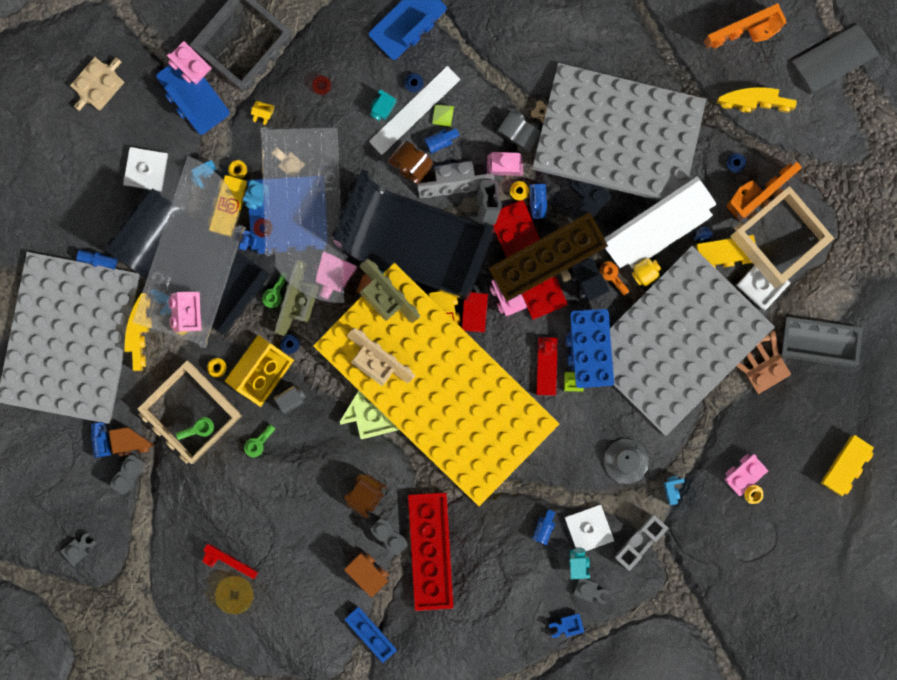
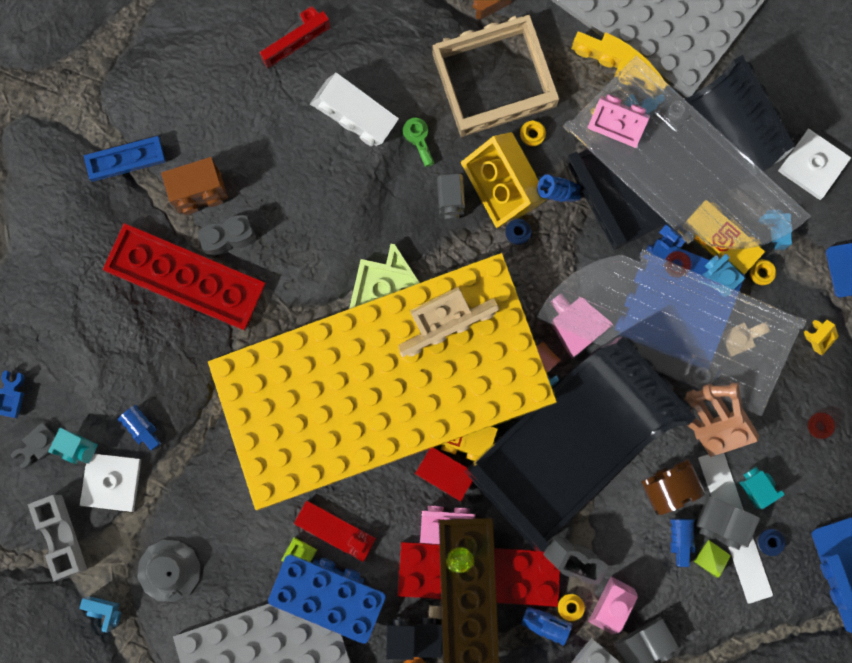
camera: 120 degrees right, 5 degrees down
(96, 259) = (735, 50): blue pin -> none
(202, 427) = (469, 78): bright green plate -> none
(223, 595) = (247, 38): clear yellow plate -> none
(248, 329) = (558, 189): none -> blue hinge
(261, 495) = (354, 110): none -> white wedge
(272, 297) = (585, 239): bright green plate -> none
(295, 306) = (561, 256): olive bracket -> none
(358, 146) = (728, 430): none -> nougat plate
(365, 494) = (290, 230): reddish brown brick -> none
(384, 296) = (521, 366): olive bracket -> none
(415, 117) = (726, 522): none -> dark grey brick
(453, 179) = (625, 530): light grey bracket -> none
(525, 275) = (460, 560): none -> clear neon green plate

